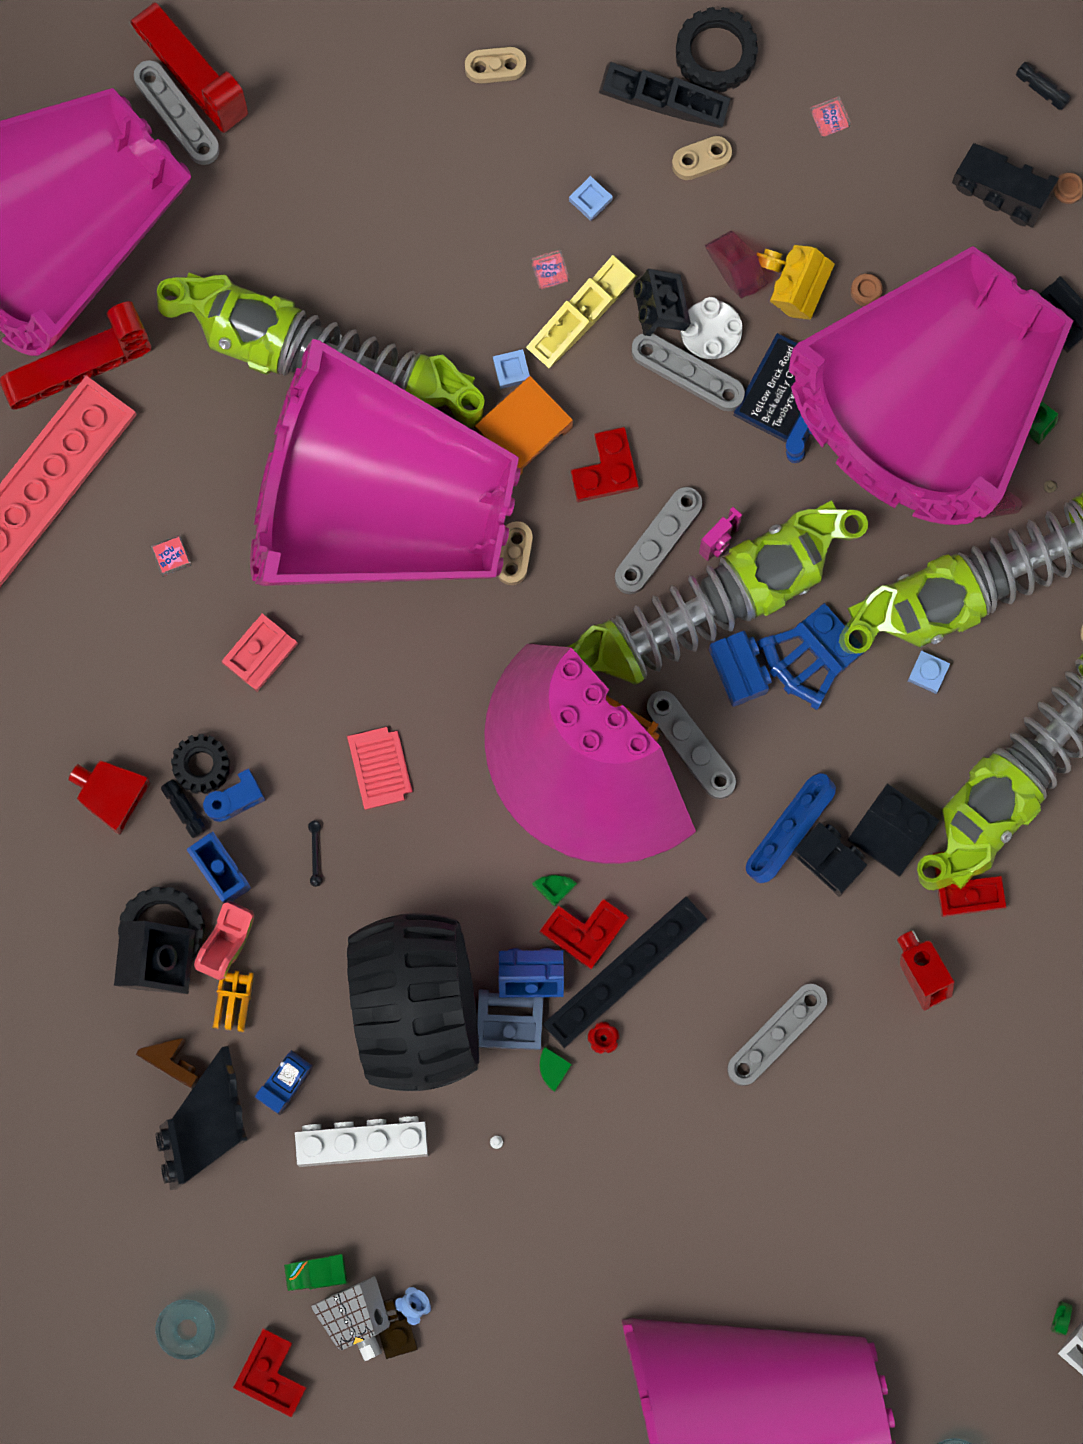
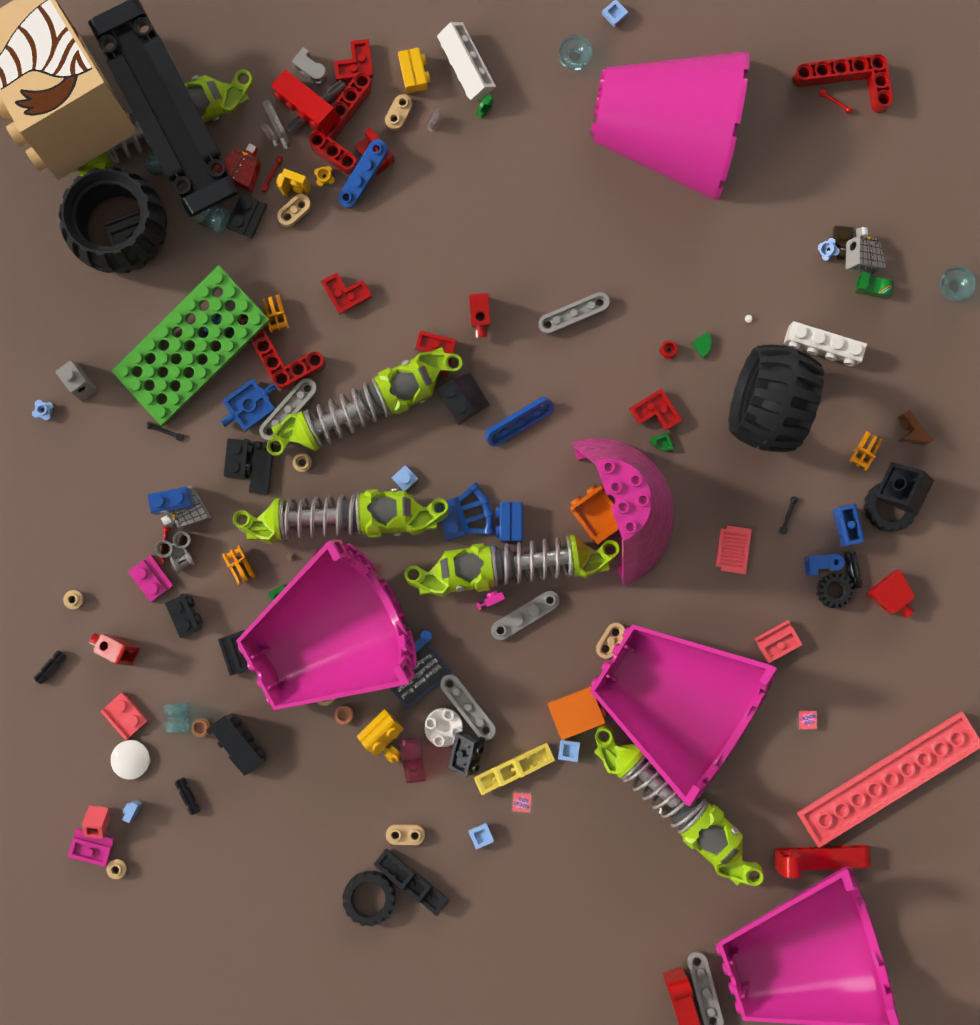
camera: 155 degrees left, 5 degrees up
(203, 1125) = (908, 387): black piece -> none
(225, 941) = (861, 482): coral animal -> none
(261, 1376) = (923, 243): red plate -> none
(284, 1082) = (855, 393): blue leg -> none
(494, 62) = (503, 944): tan plate -> none
(509, 1030) = (720, 374): sand blue plate -> none
(531, 973) = (696, 398): blue brick -> none
(613, 474) = (533, 665): red plate -> none
(625, 972) = (643, 379): black plate -> none
(691, 745) = (554, 491): light grey plate -> none
(829, 858) = (504, 395): black piece -> none
(830, 116) = (319, 829): clear tile -> none

